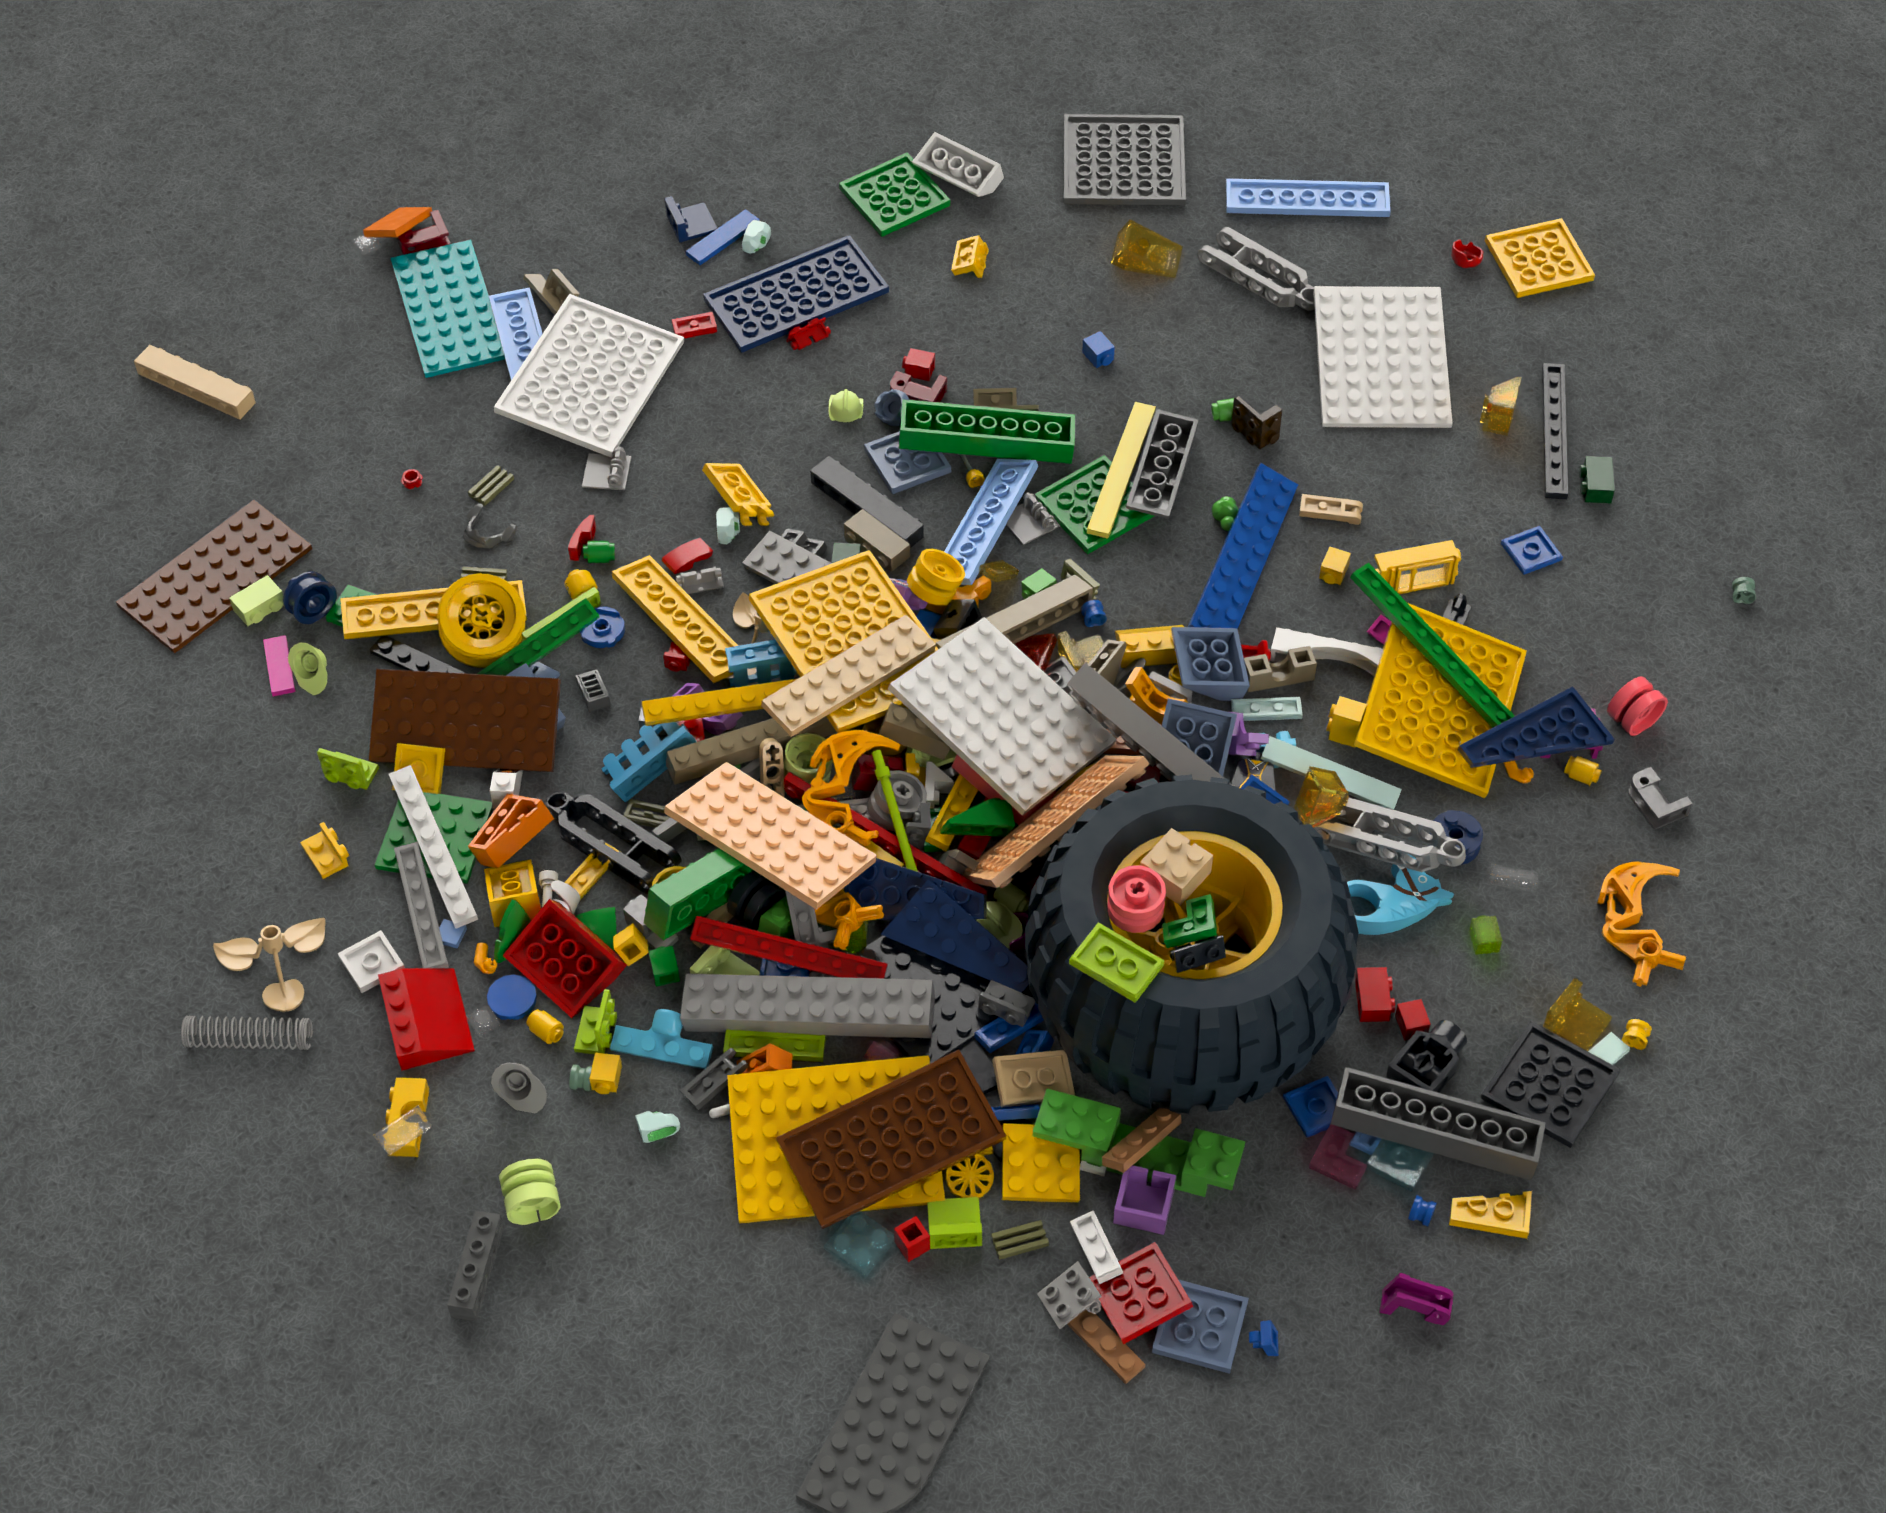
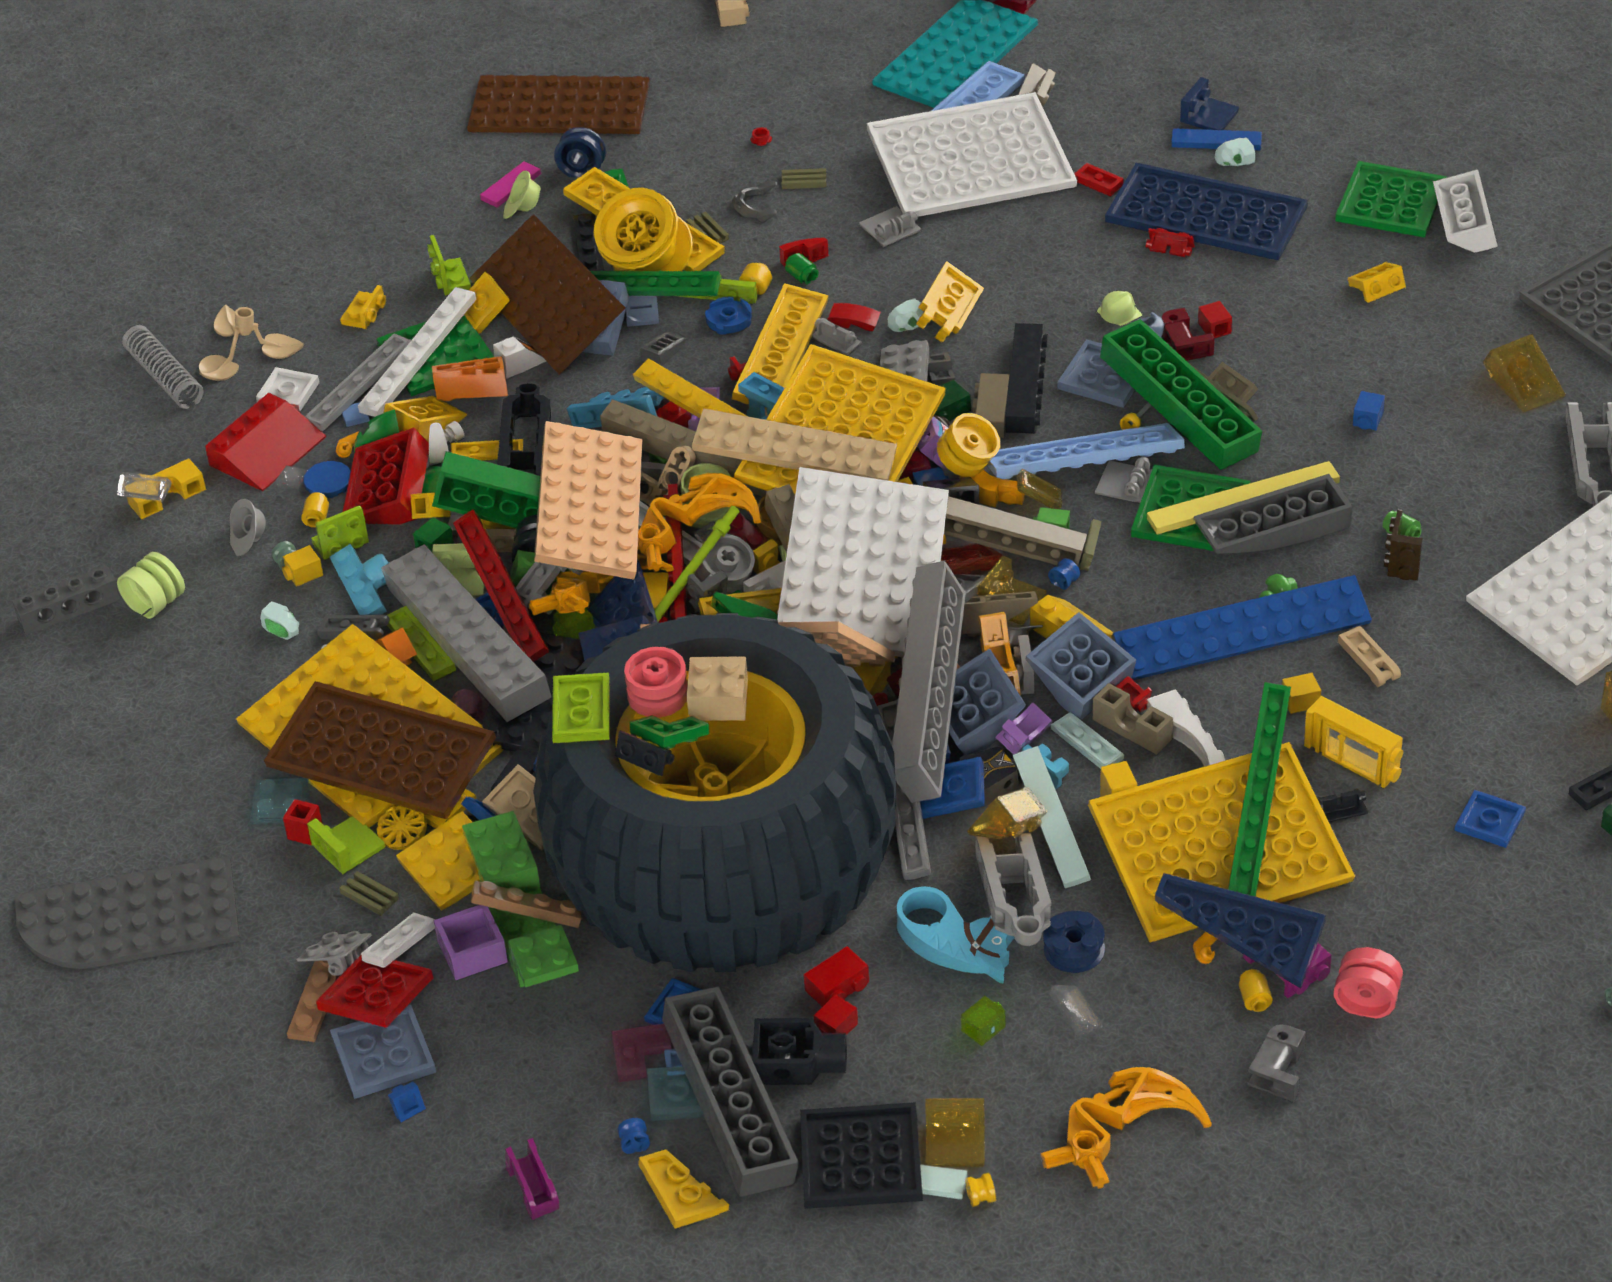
camera: 55 degrees right, 10 degrees down
(257, 601) = (547, 133): yellowish green brick -> none

